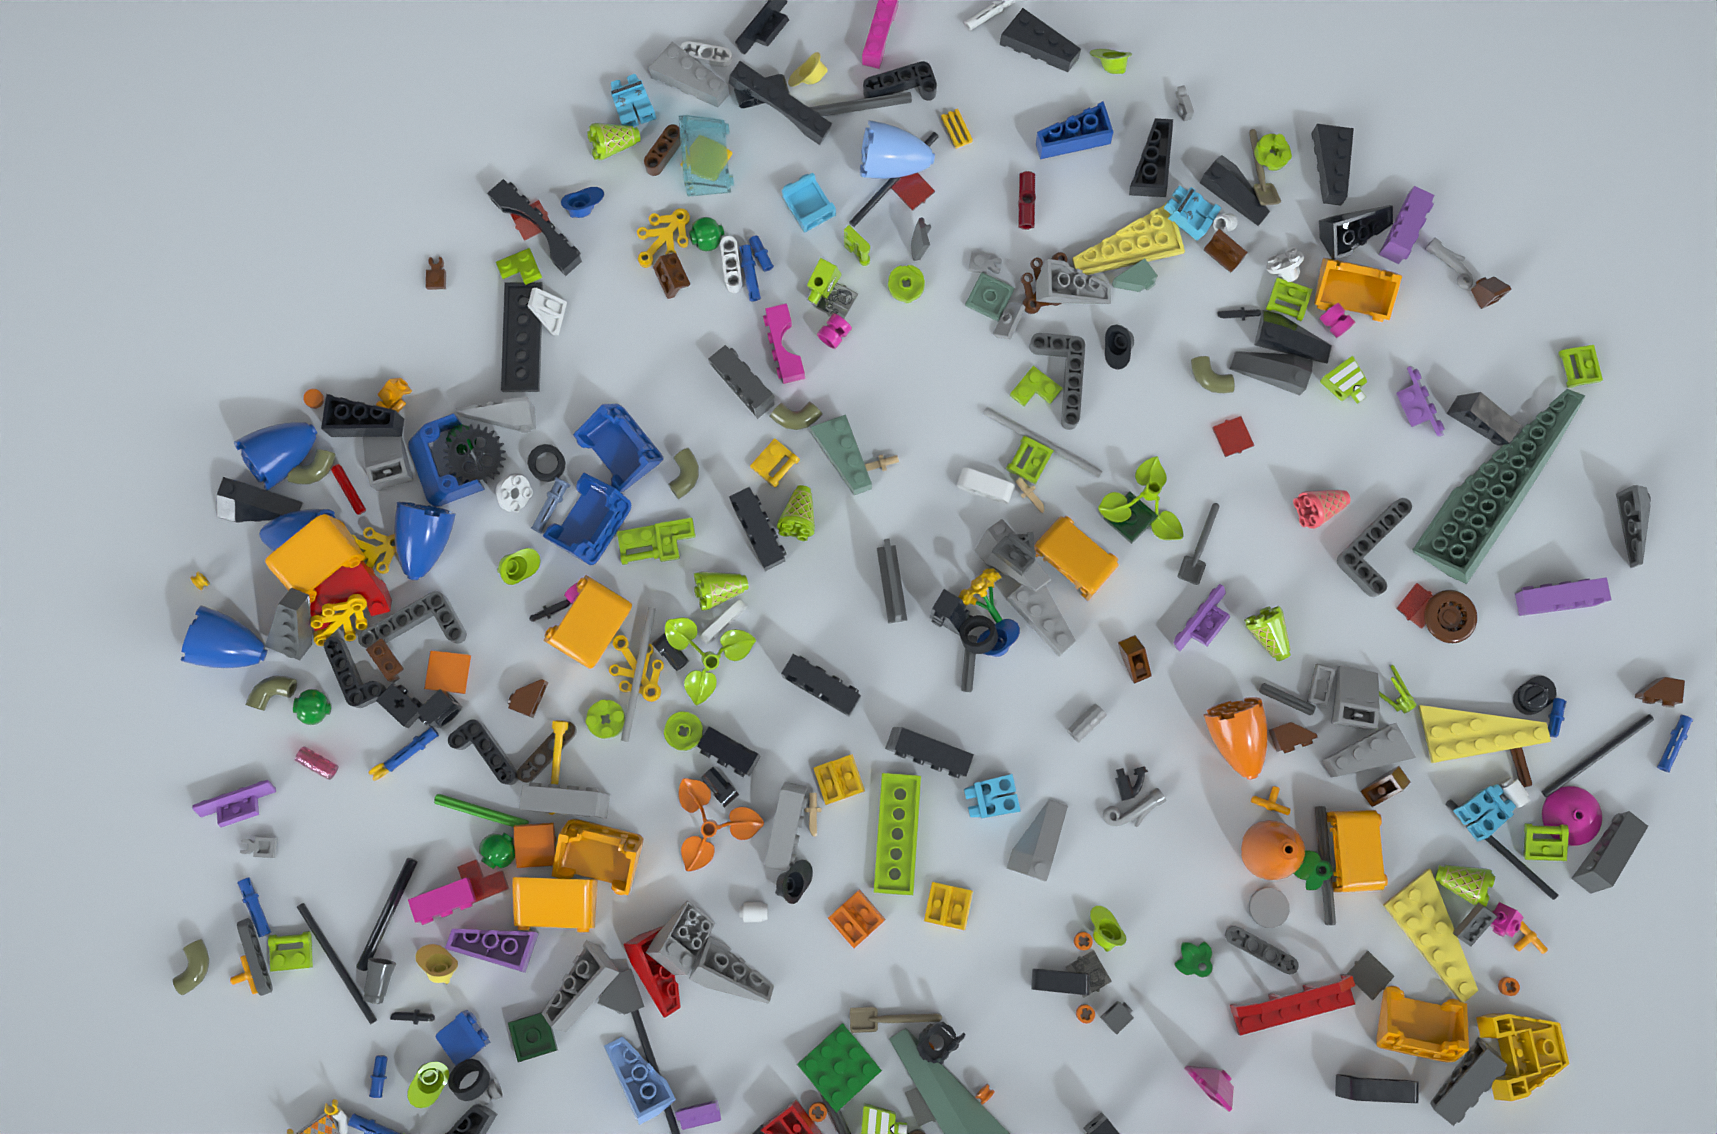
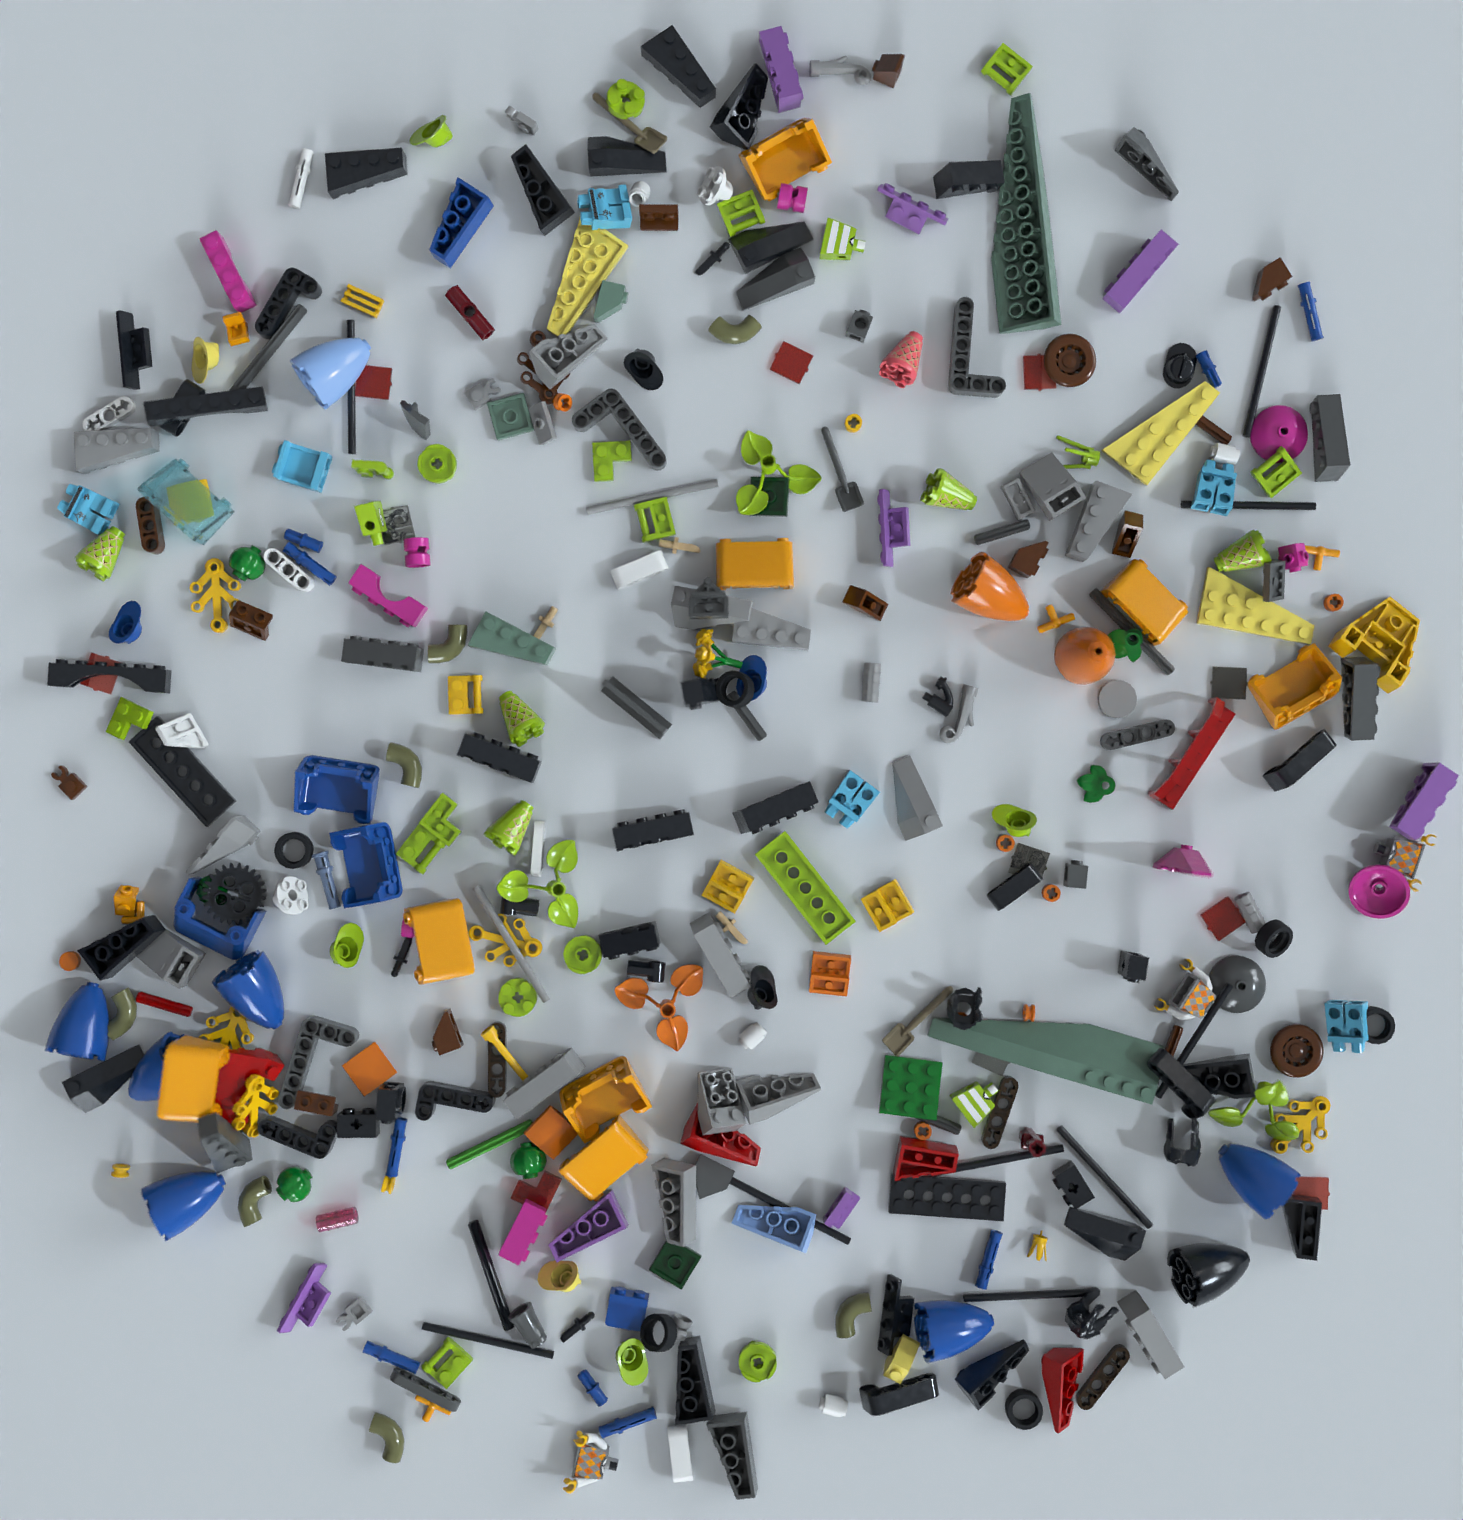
camera: 45 degrees left, 10 degrees up
(850, 71) = (236, 328): none -> light orange bracket
(1041, 321) = (567, 400): none -> orange bush
(1243, 525) = (857, 427): none -> yellow bush
(1303, 458) = (859, 333): none -> dark grey brick

